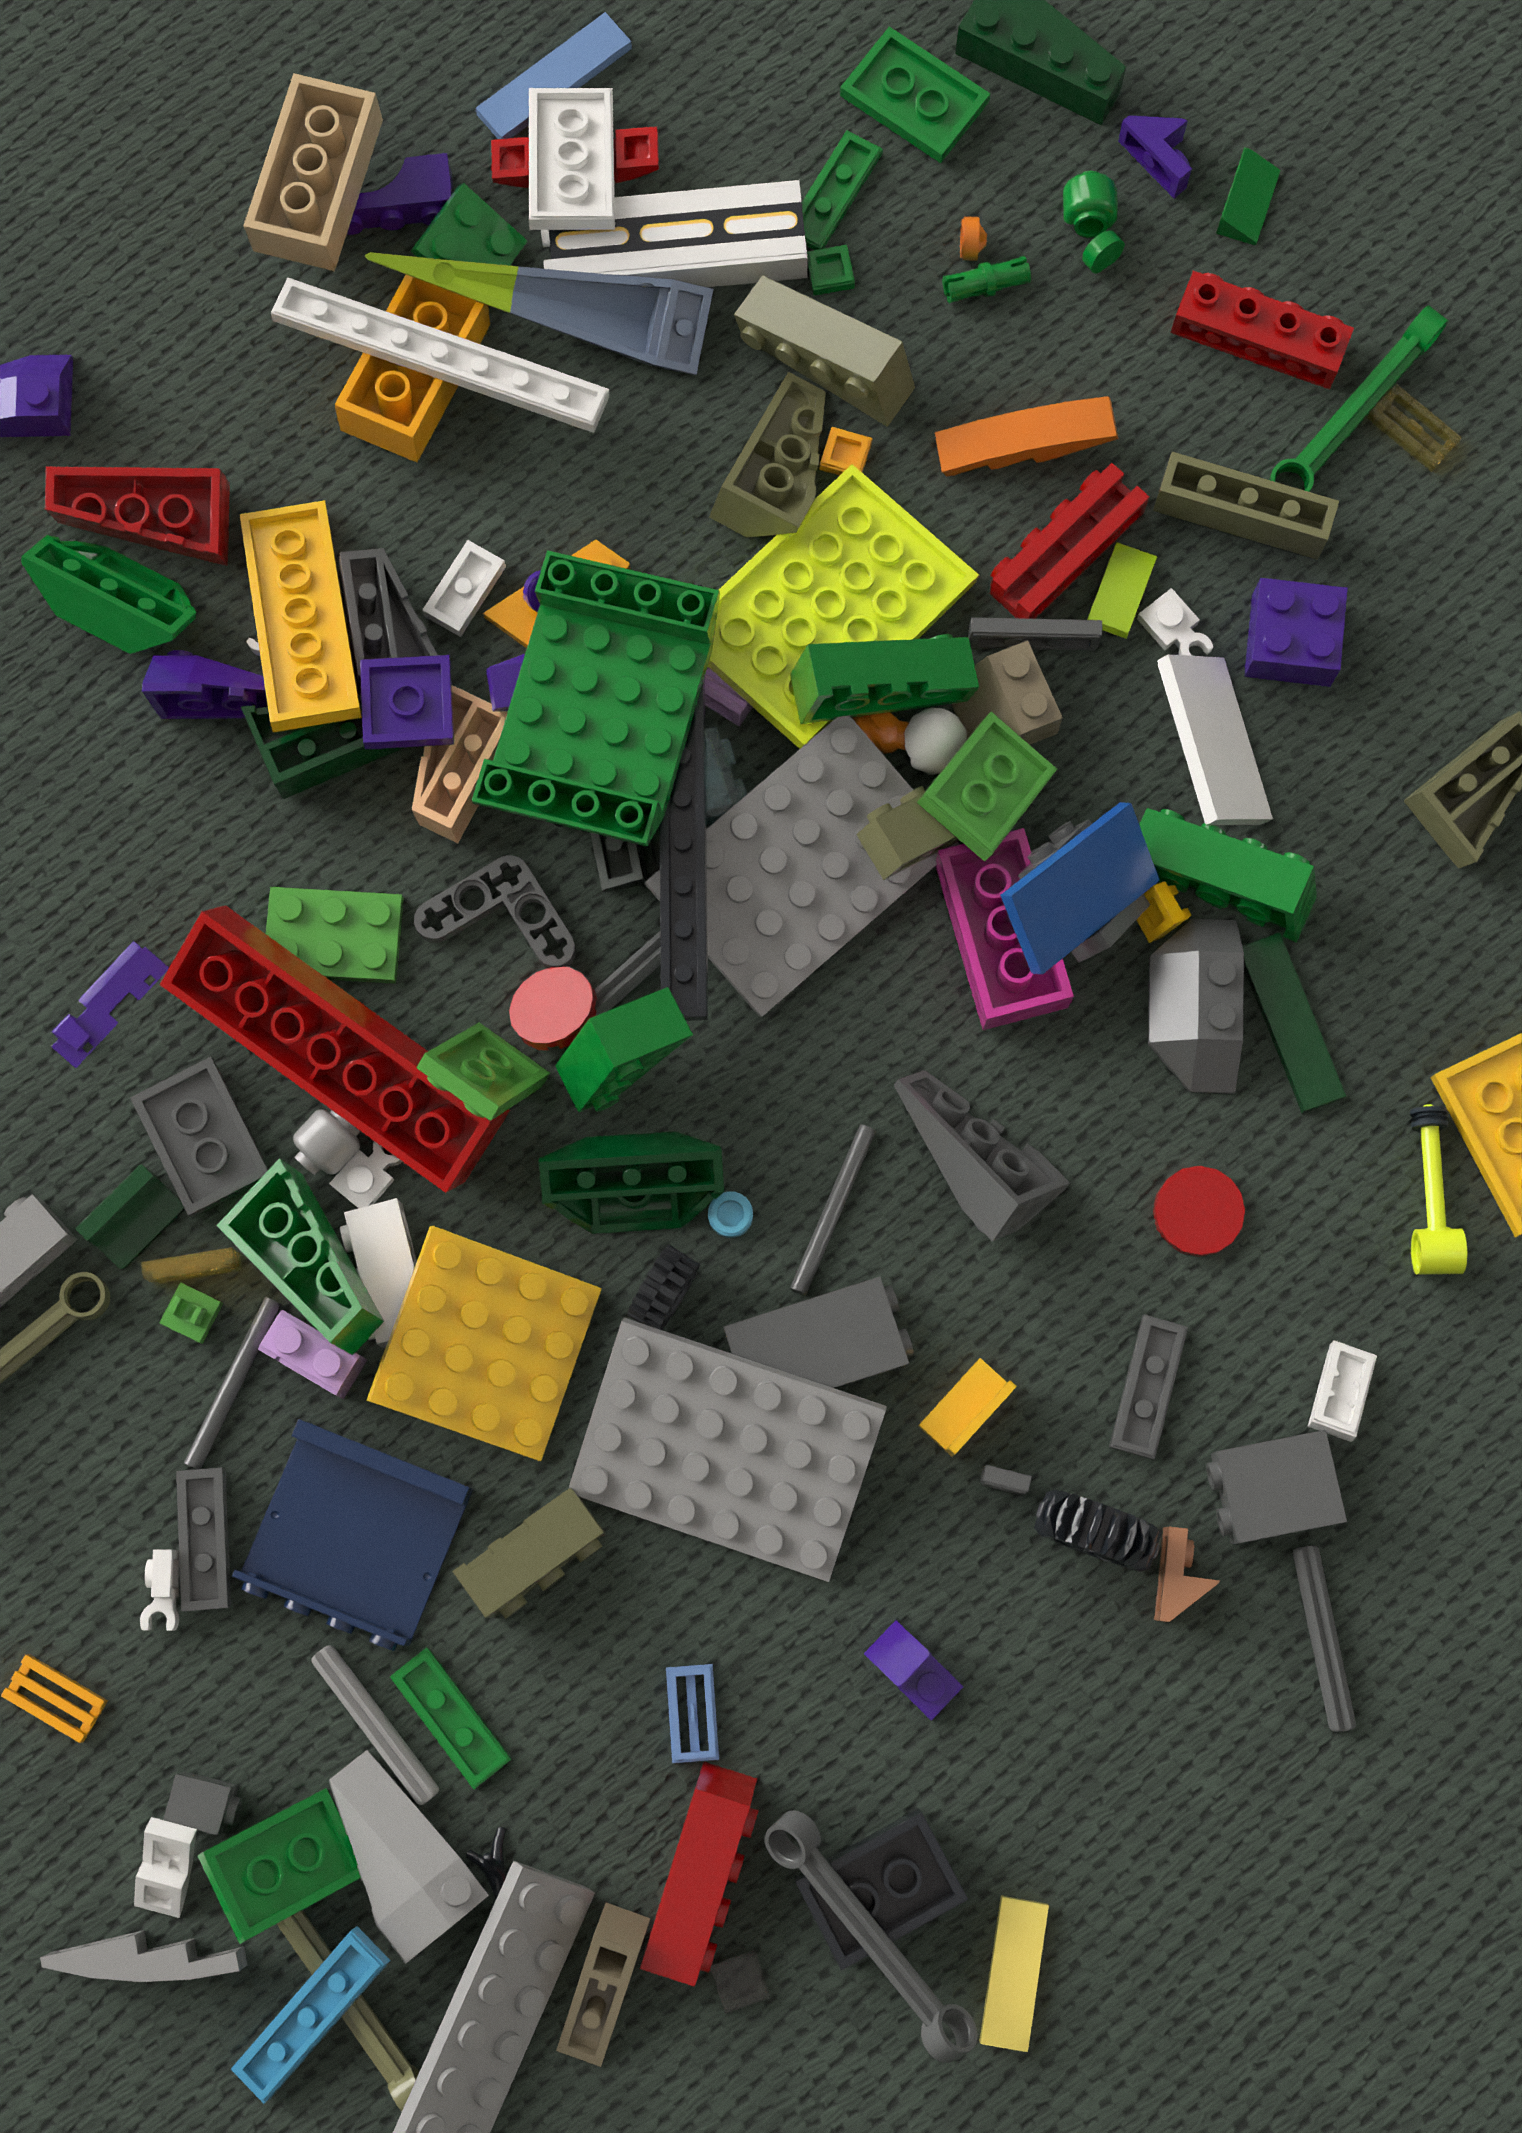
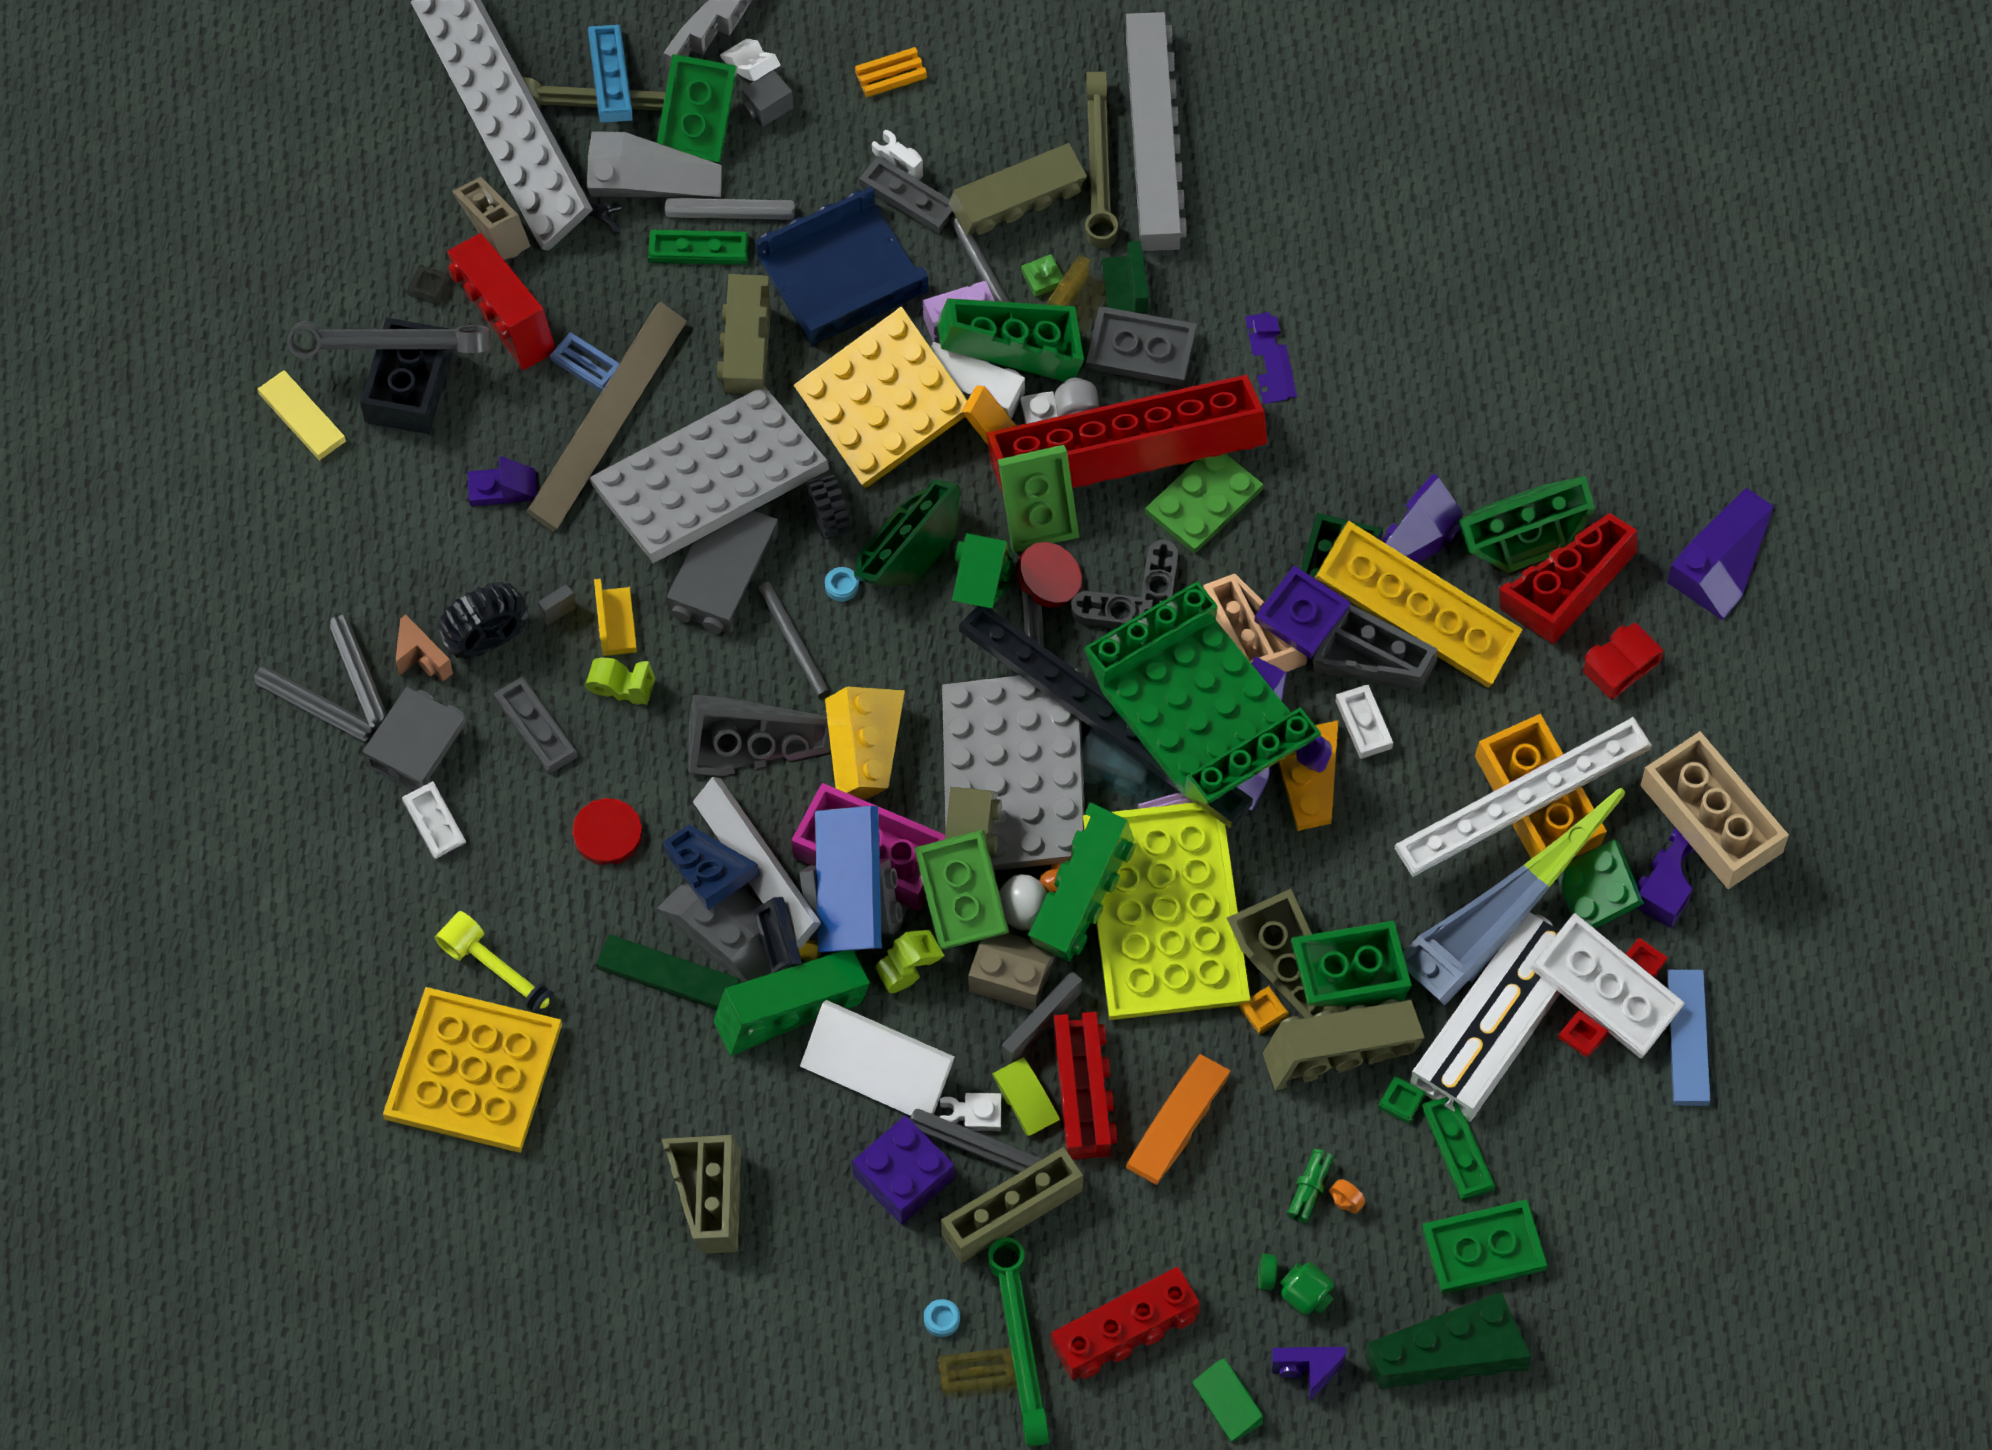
camera: 130 degrees right, 15 degrees down
(109, 1415) = (1017, 190): none -> olive brick
(198, 402) = (1622, 660): none -> red brick
(423, 1210) = (985, 412): none -> light orange tile
(740, 1628) = (606, 416): none -> dark tan tile
(745, 384) = (1352, 966): none -> green slope
(895, 1030) = (863, 738): none -> yellow wedge
(1031, 1340) = (611, 678): none -> lime leg
(1087, 786) = (909, 951): none -> lime leg
(1118, 1019) = (739, 834): none -> light grey tile
(1162, 1061) = (709, 865): none -> dark blue wing
(1183, 925) = (777, 935): none -> black tile
(1208, 595) = (972, 1141): none -> dark grey axle
(1254, 1620) = (358, 671): none -> dark grey axle
(1393, 495) = (941, 1318): none -> medium azure tile

